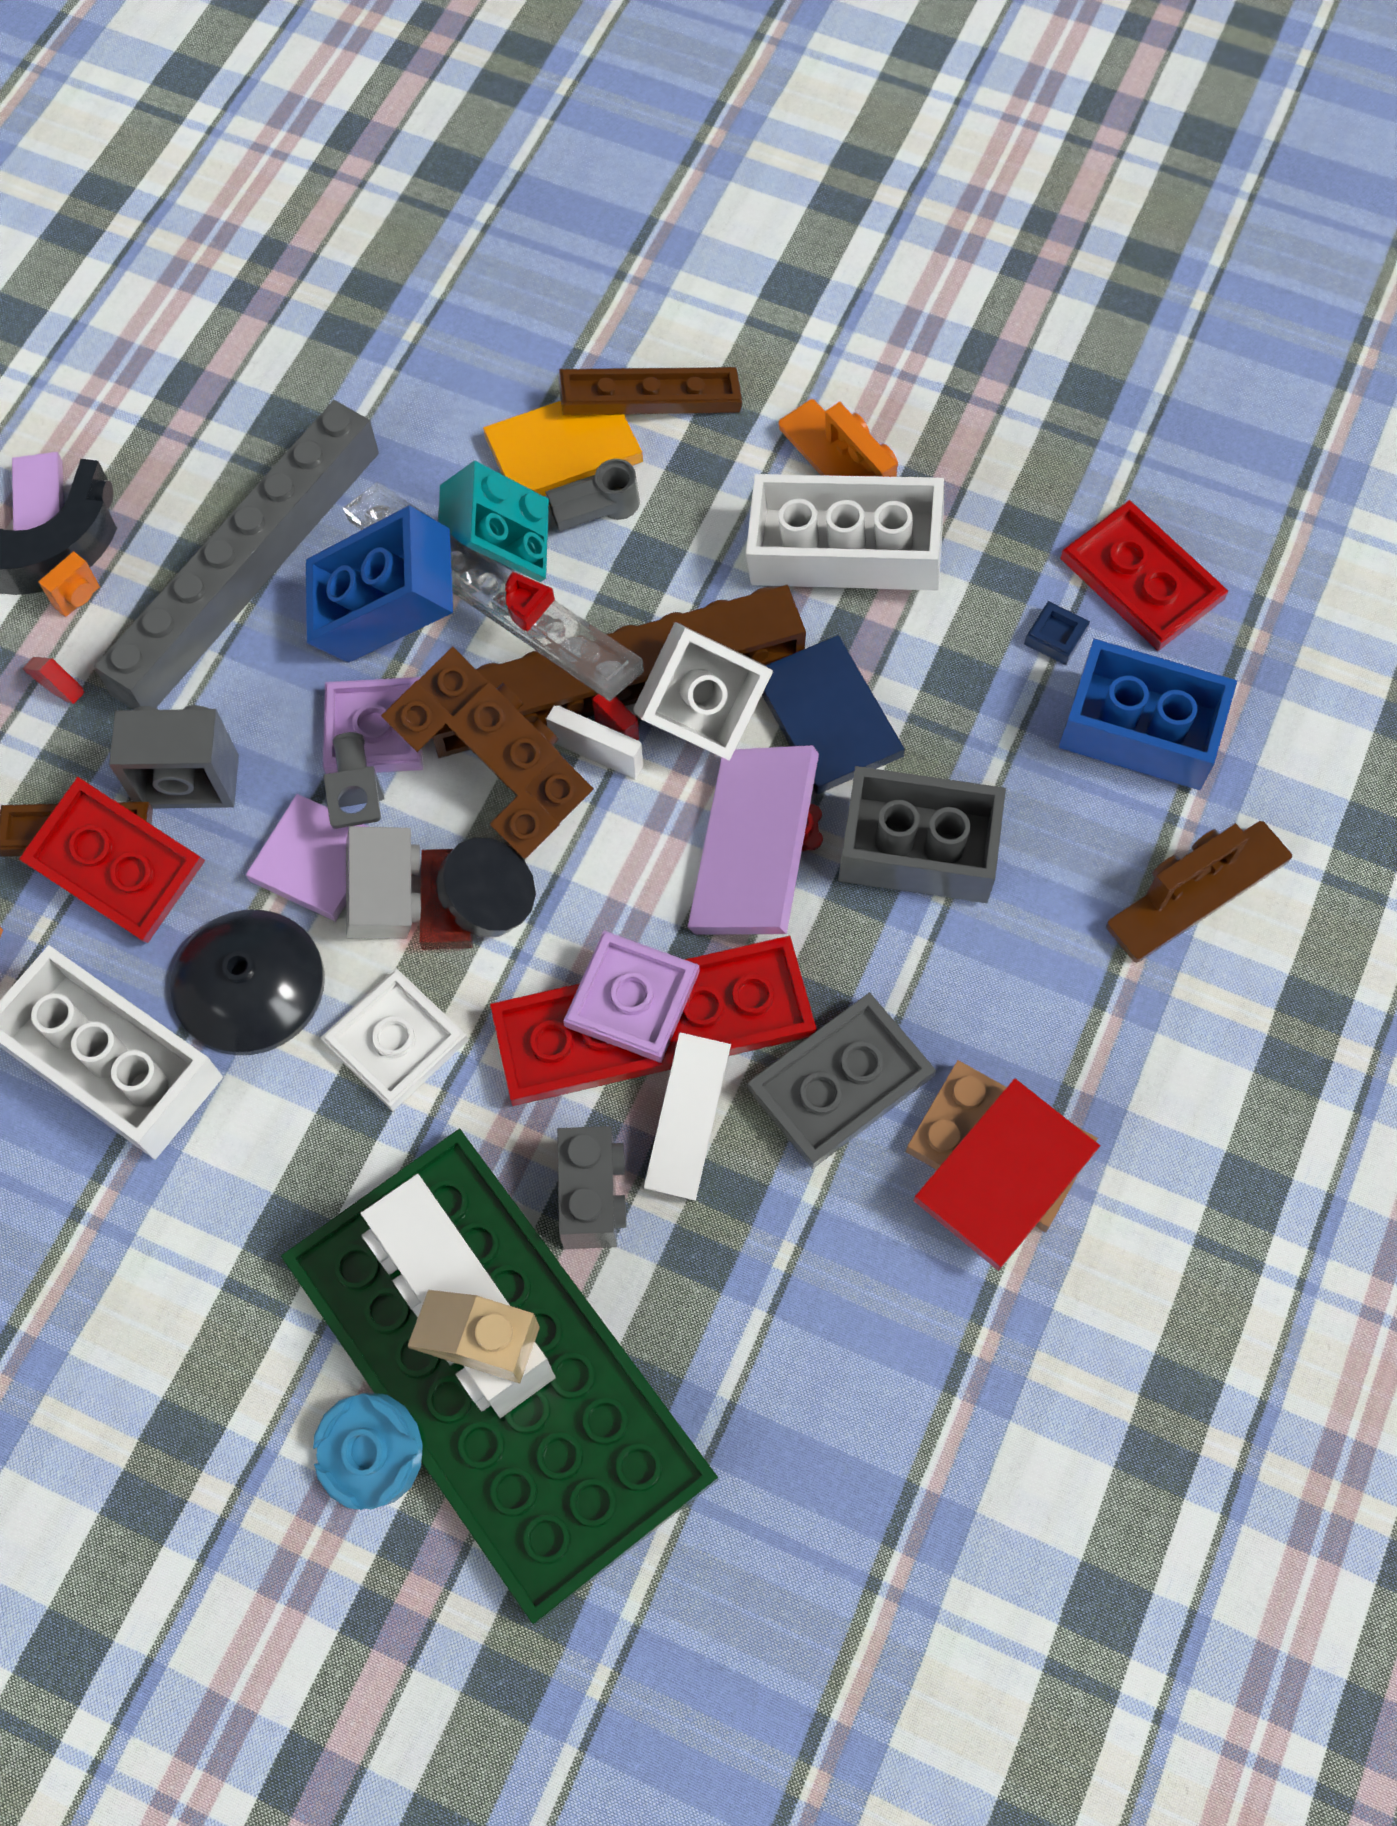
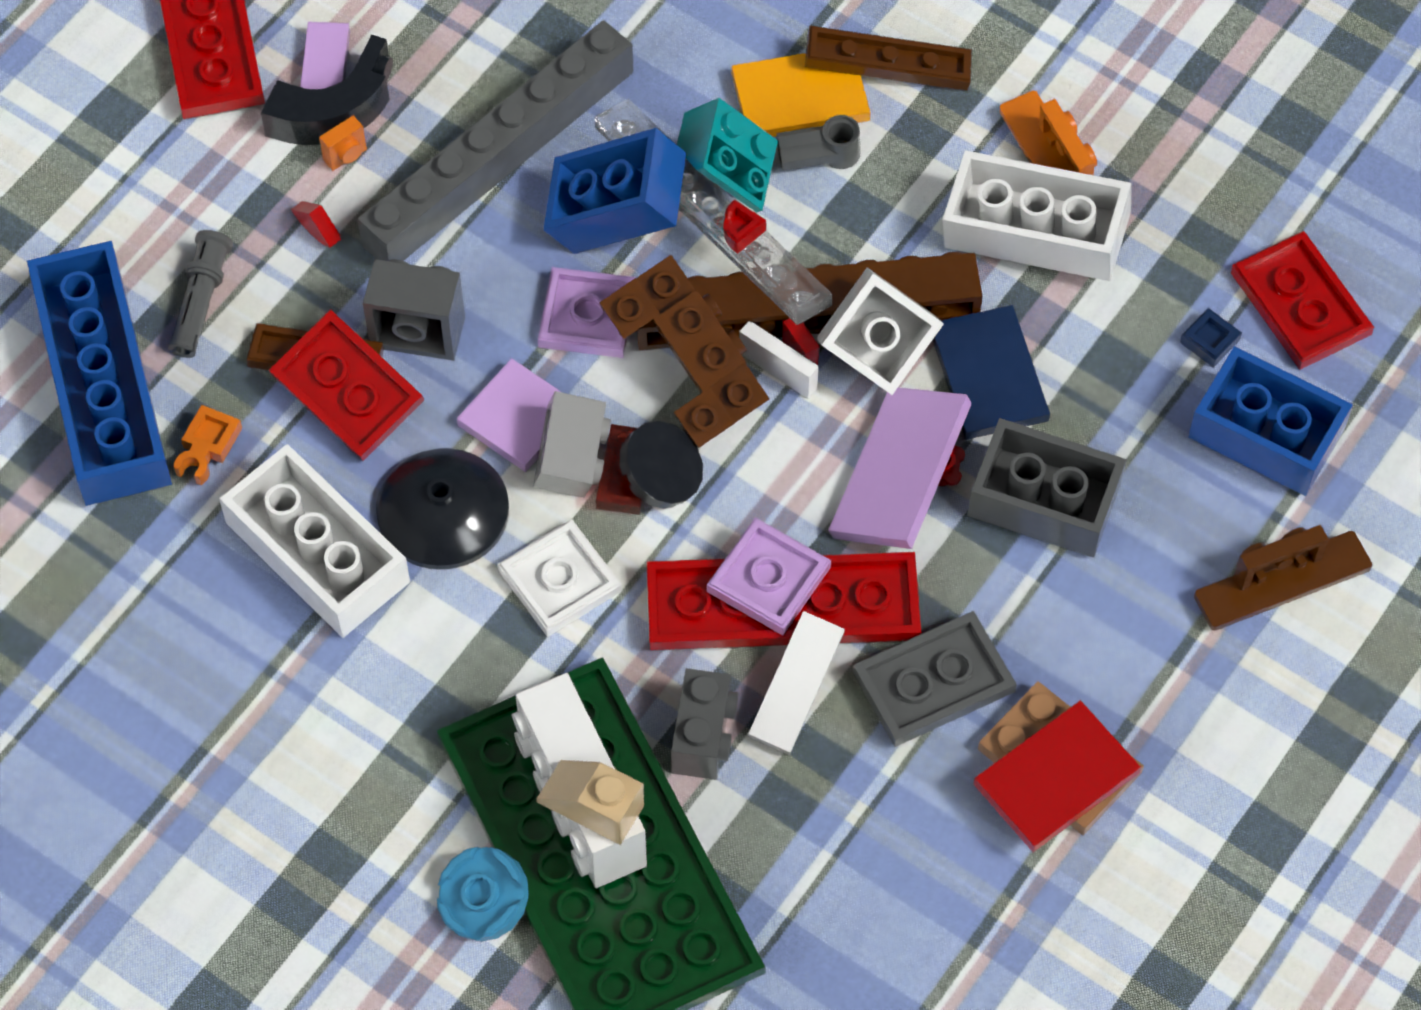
camera: 10 degrees right, 5 degrees down
(352, 784) = (562, 357): dark grey bracket -> none

